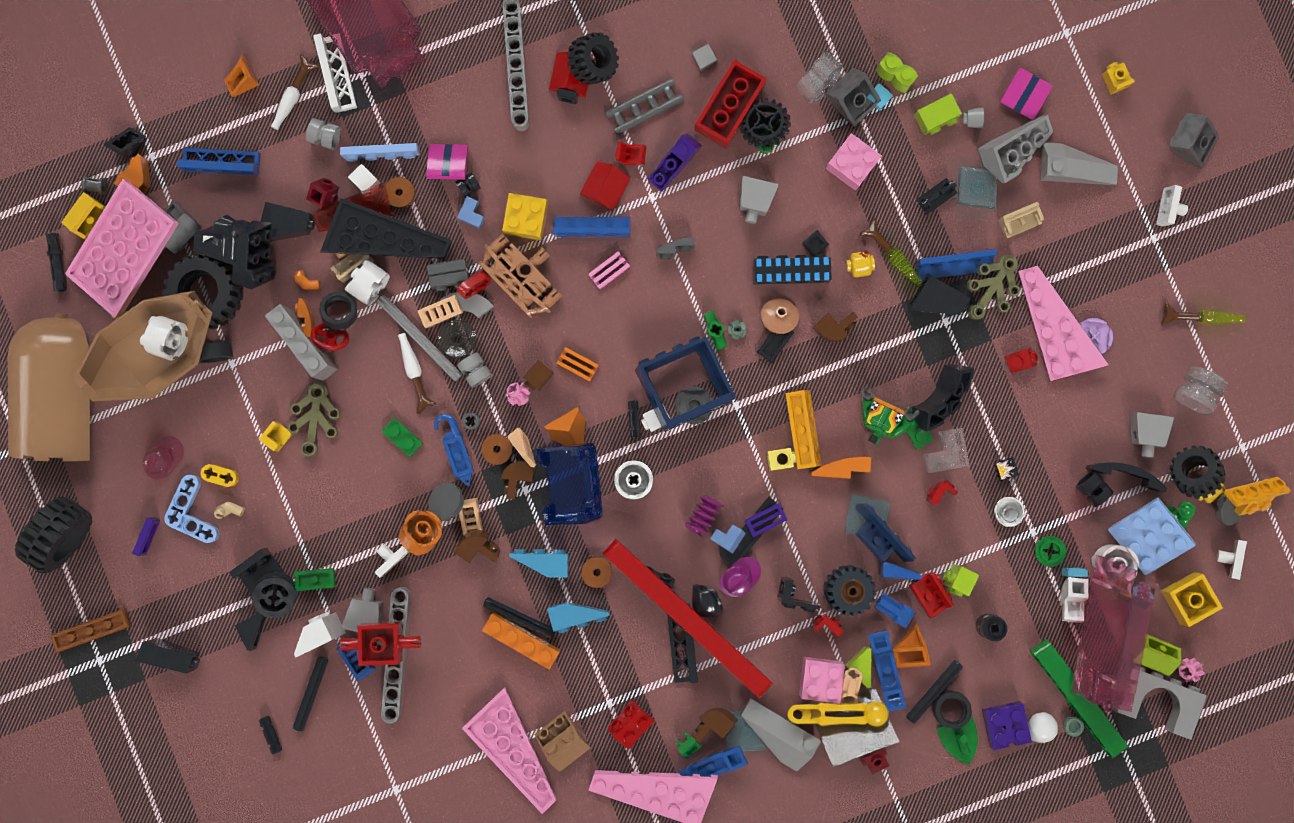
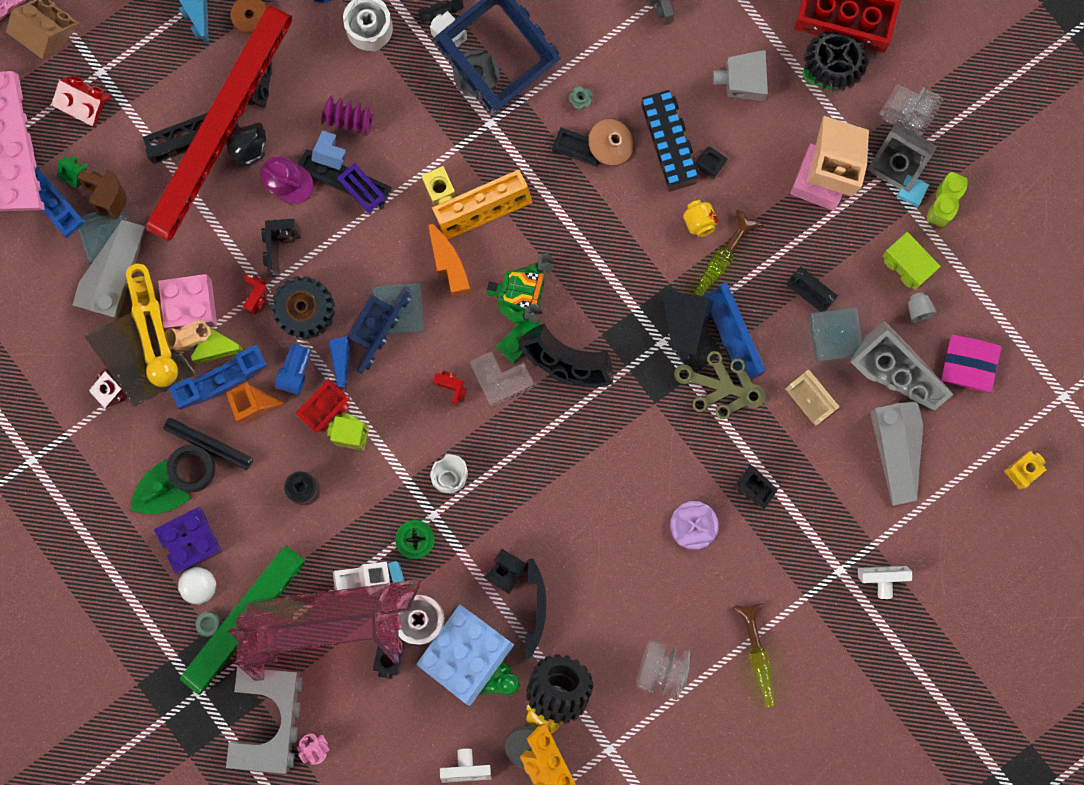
camera: 75 degrees right, 5 degrees down
(719, 340) = (562, 77): green axle -> none
(830, 330) = (610, 208): reddish brown brick -> none
(849, 142) = (839, 157): none -> light nougat slope
(1006, 469) = (501, 460): tile -> none
(1021, 360) = (640, 444): red bracket -> none
(1061, 338) = (684, 481): bright pink wing -> none
(1076, 283) = (755, 487): none -> black slope
(1150, 431) = (595, 623): light grey torso -> none
(1161, 656) = (320, 700): lime brick -> none
(1191, 599) = (400, 725): yellow brick -> none
(1194, 139) = (977, 585): flat silver slope -> none

